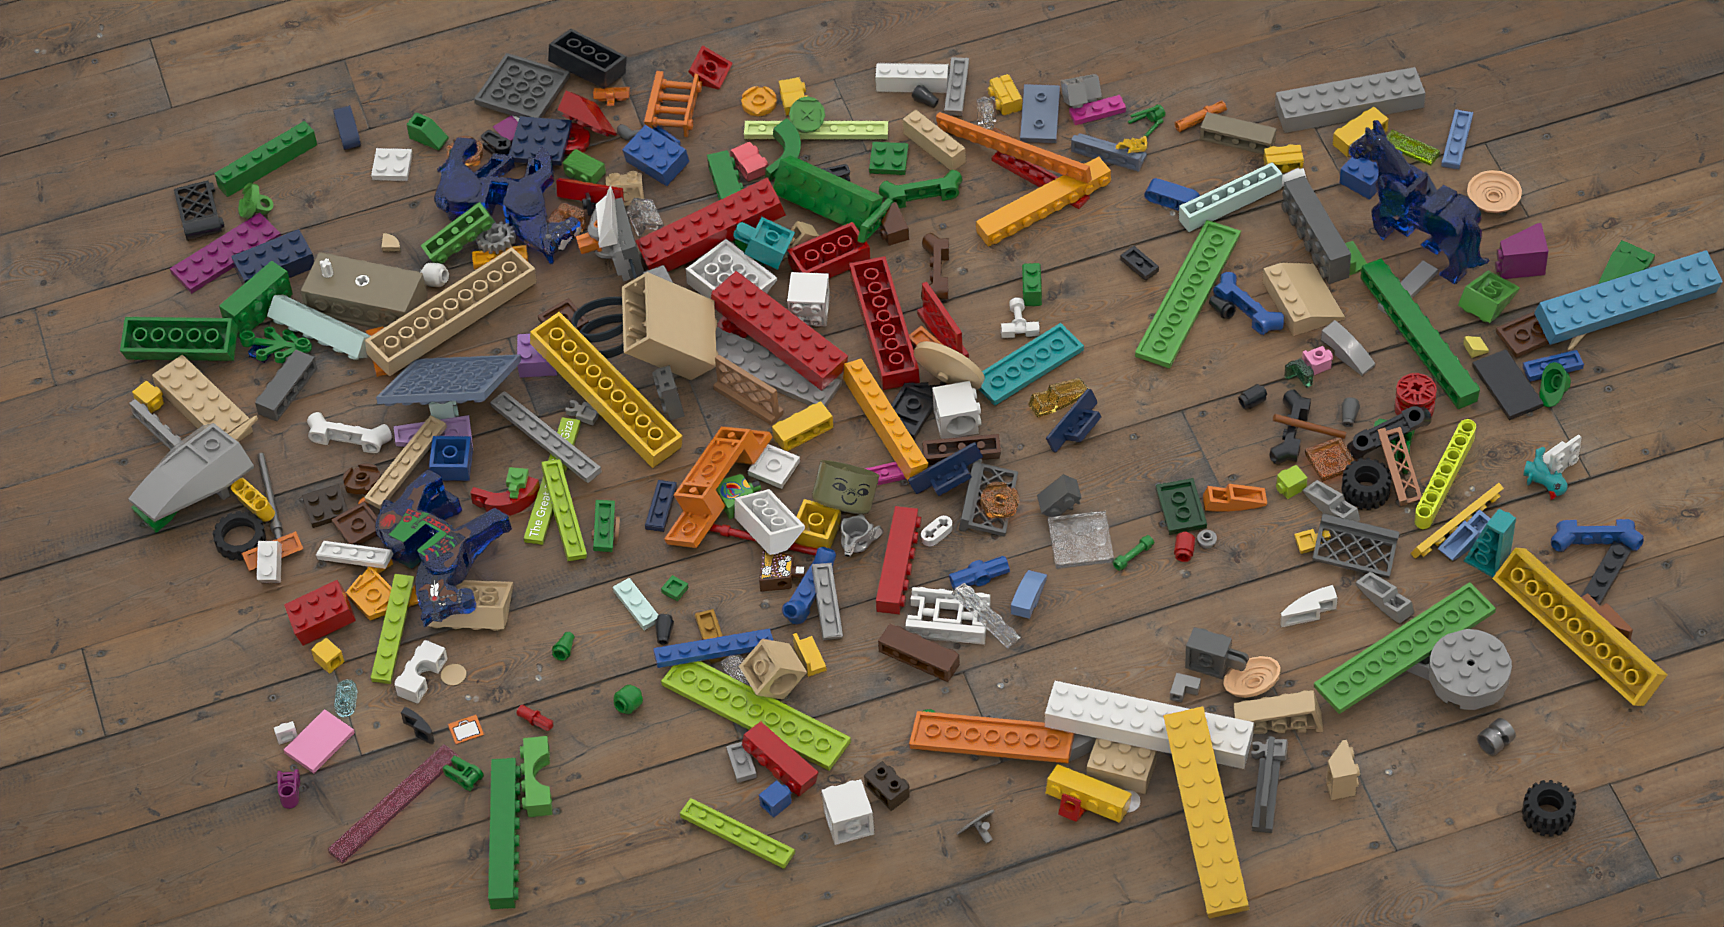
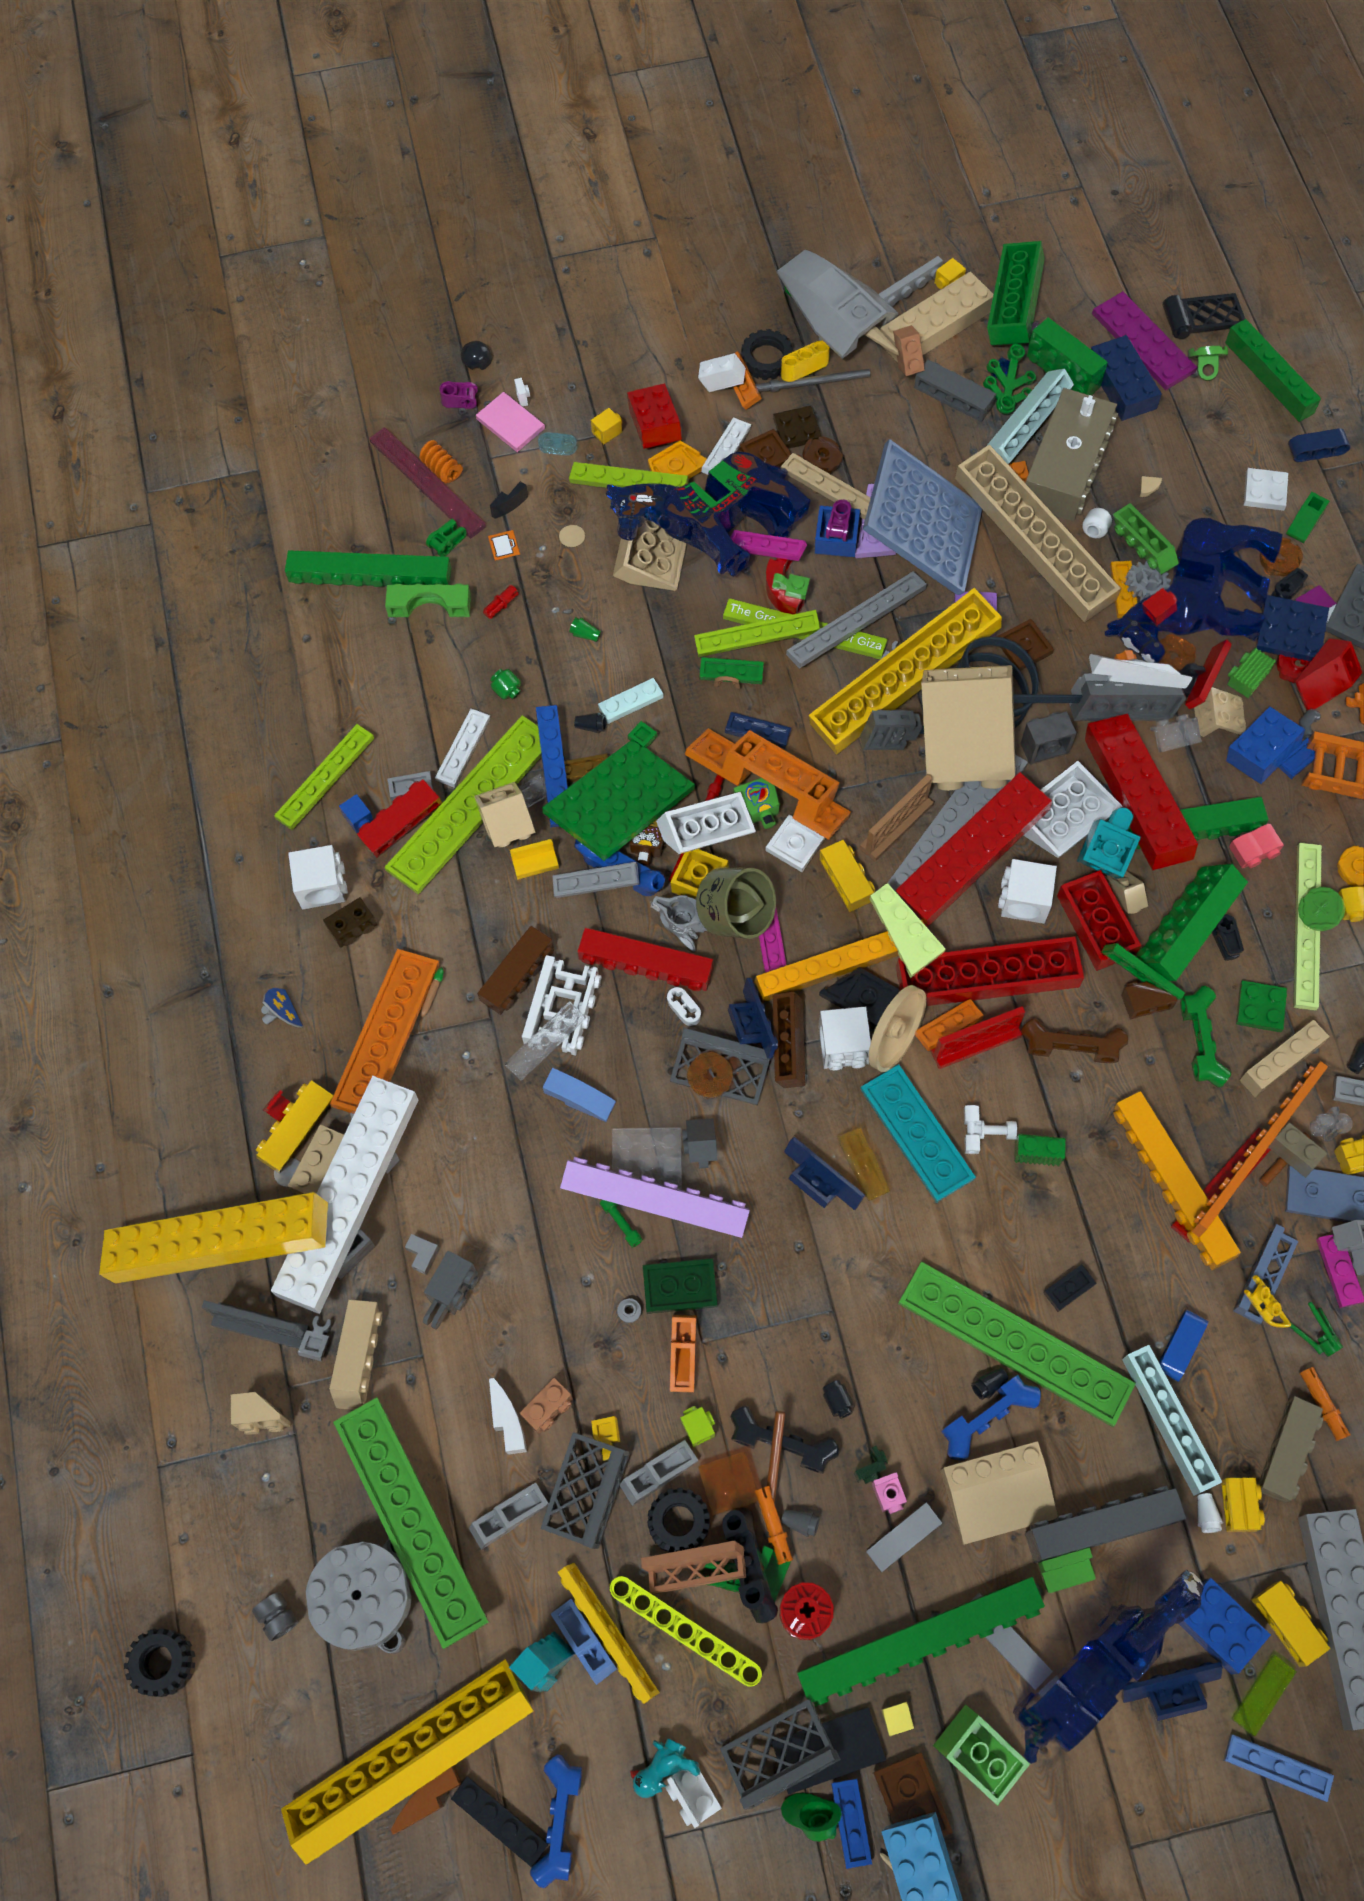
camera: 95 degrees right, 15 degrees up
(235, 781) = (476, 355): none -> black hair
(252, 404) = (910, 352): none -> nougat brick
(323, 431) = (889, 422): white plate -> none
(373, 787) = (440, 462): none -> orange piece
(426, 658) = (560, 494): white arch -> none
(451, 444) = (839, 523): none -> magenta piece
(471, 499) = (769, 545): none -> dark pink tile
(536, 213) = (1160, 606): none -> red brick
(695, 729) = (462, 748): none -> white tile
(747, 589) = (618, 799): none -> green plate
(790, 140) = (1276, 891): green arch -> none
(858, 368) = (910, 936): none -> yellowish green wing
(979, 572) = (615, 1045): blue piece -> none
(1013, 124) = (1297, 1150): none -> dark tan brick
(1113, 523) = (655, 1198): none -> lavender brick
(1184, 546) = (618, 1280): red brick -> none
(1258, 677) = (405, 1334): light nougat hat -> none
(1294, 579) = (546, 1406): none -> nougat brick
(1362, 423) = (773, 1525): none -> orange pin
(1494, 191) = (1166, 1800): light nougat hat -> none
(1523, 254) = (1043, 1819): magenta slope -> none
(1531, 394) = (784, 1778): none -> dark grey fence

